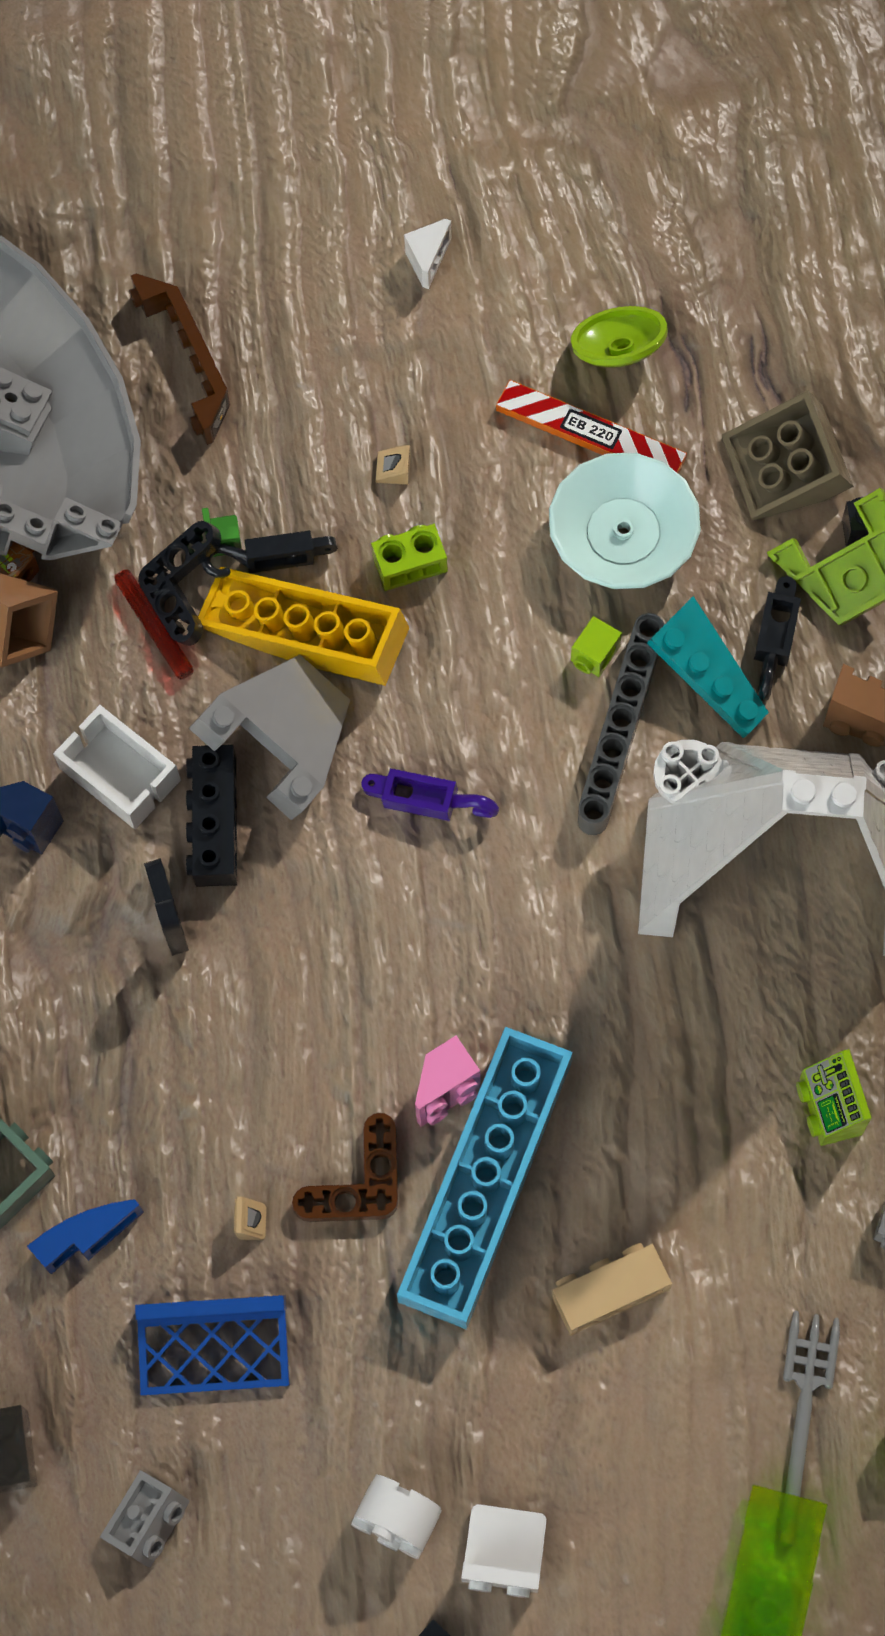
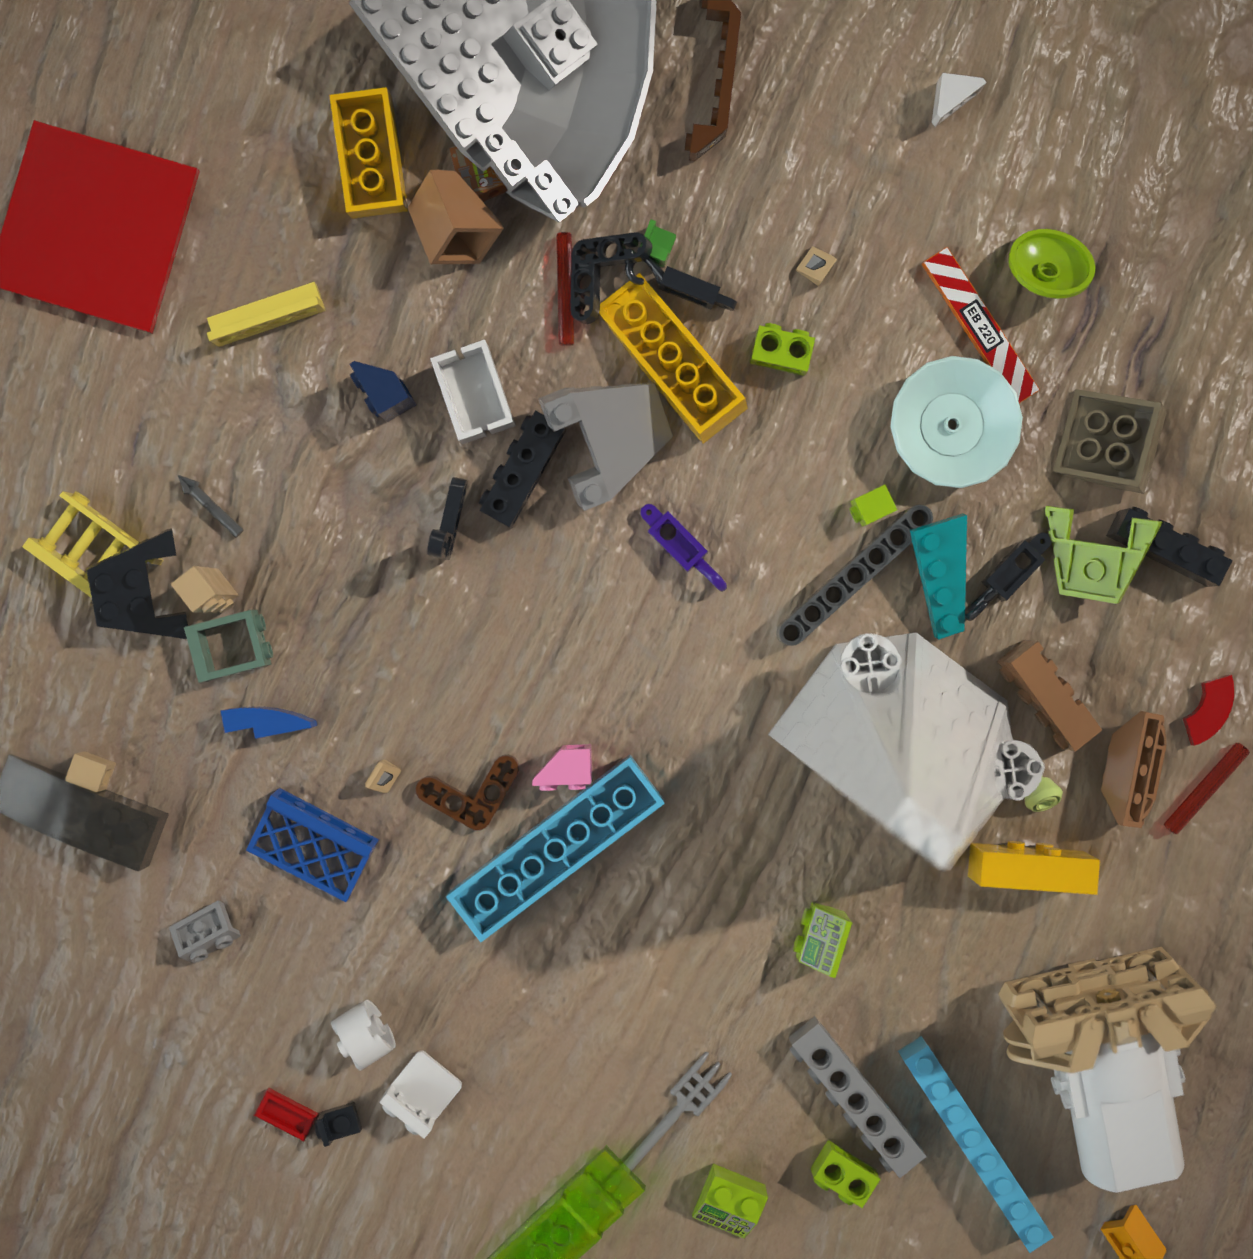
camera: 25 degrees right, 20 degrees up
(610, 1288) = (593, 969): tan brick -> none

